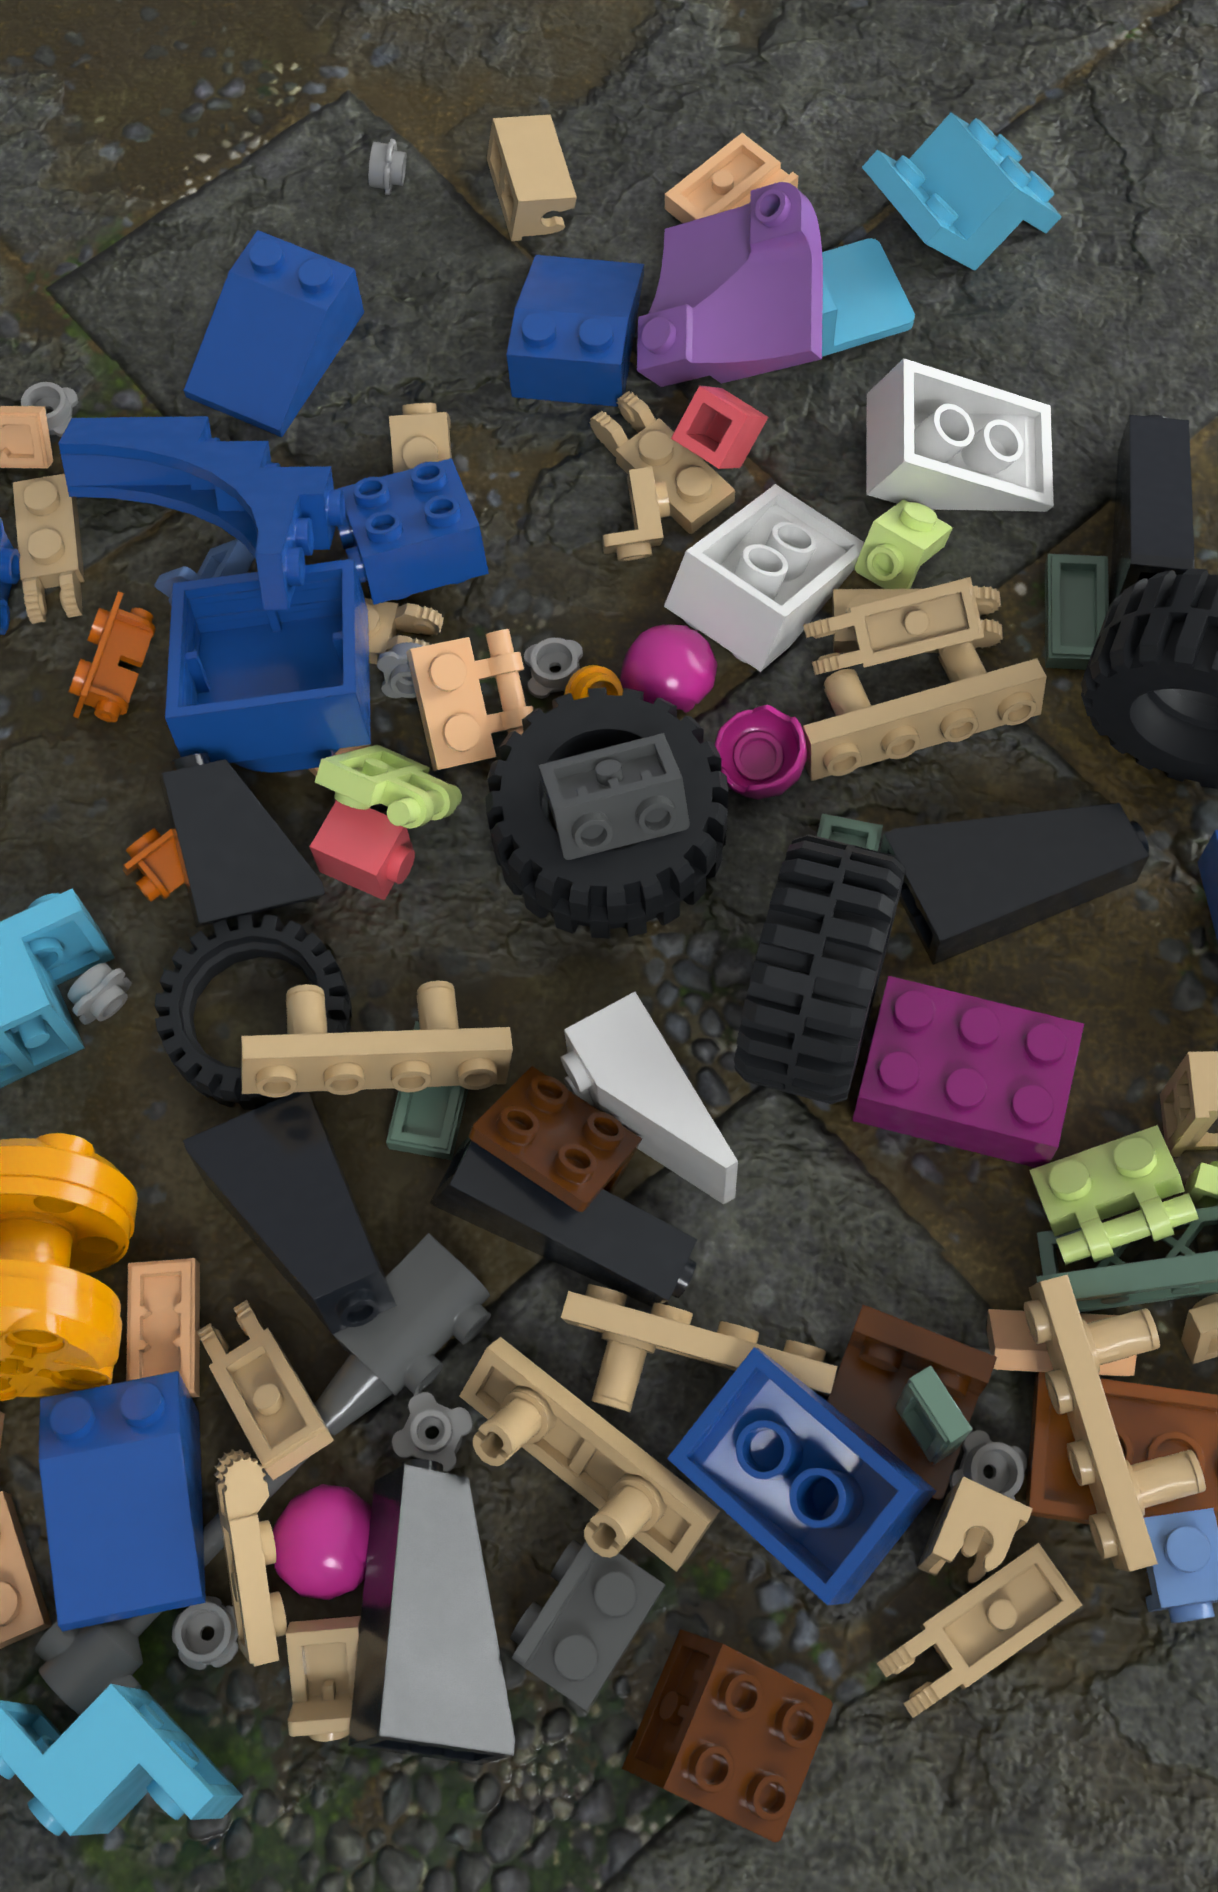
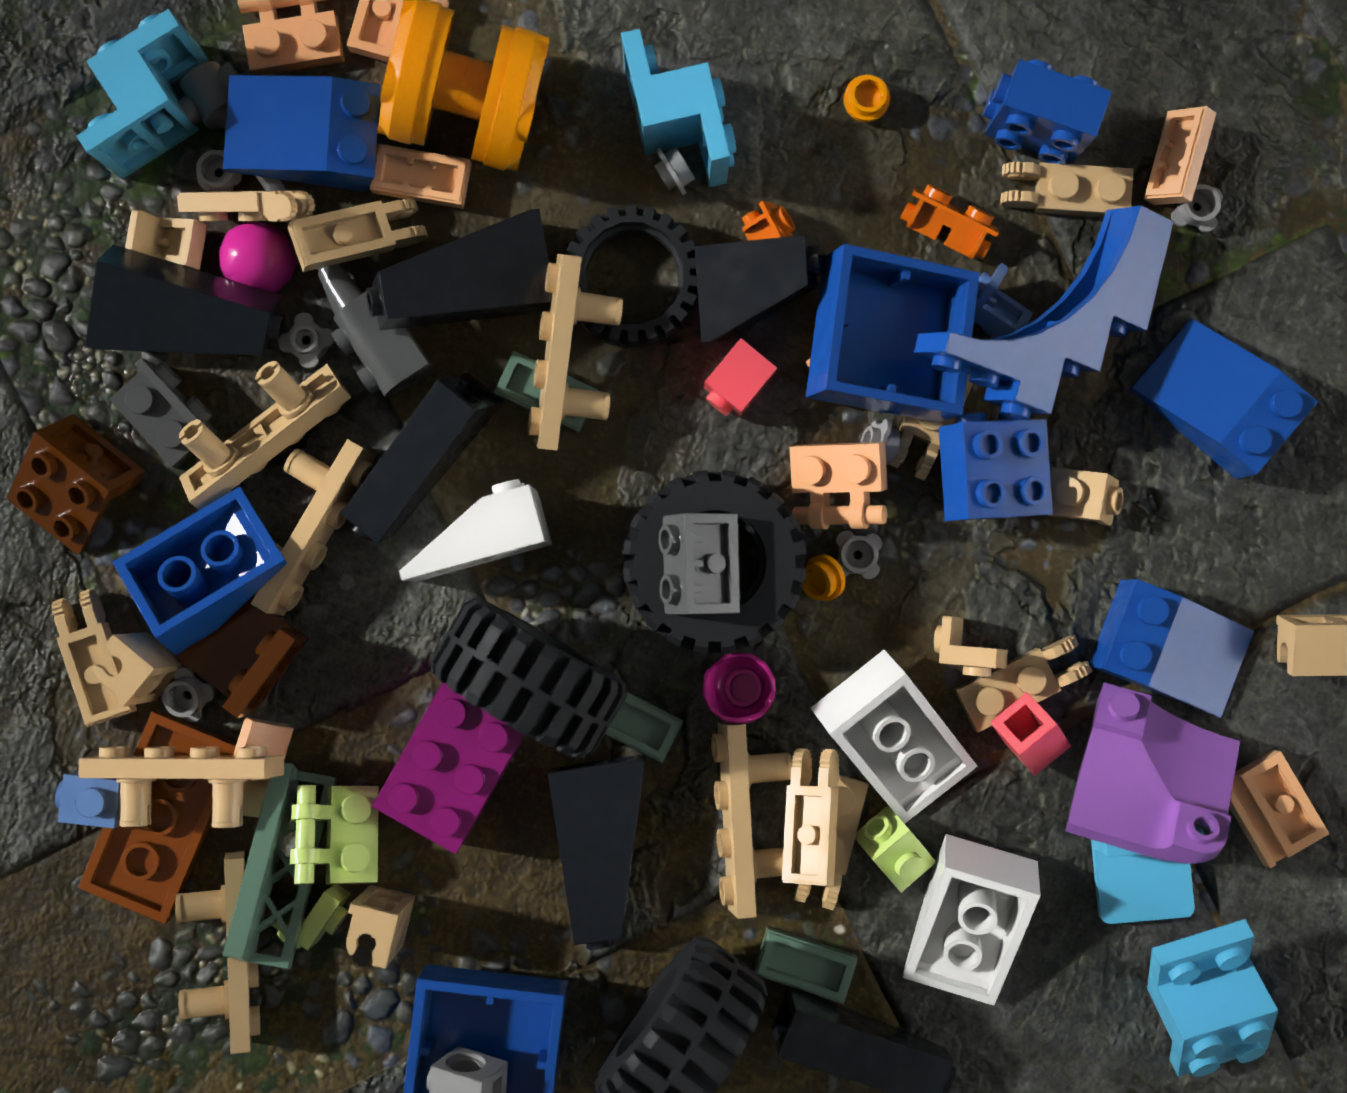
camera: 100 degrees right, 20 degrees up
(388, 778) = (779, 393): yellowish green plate -> none
(556, 1139) = (459, 460): reddish brown bracket -> none
(670, 665) = (833, 640): dark pink hair -> none
(932, 1415) = (208, 663): sand green tile -> none

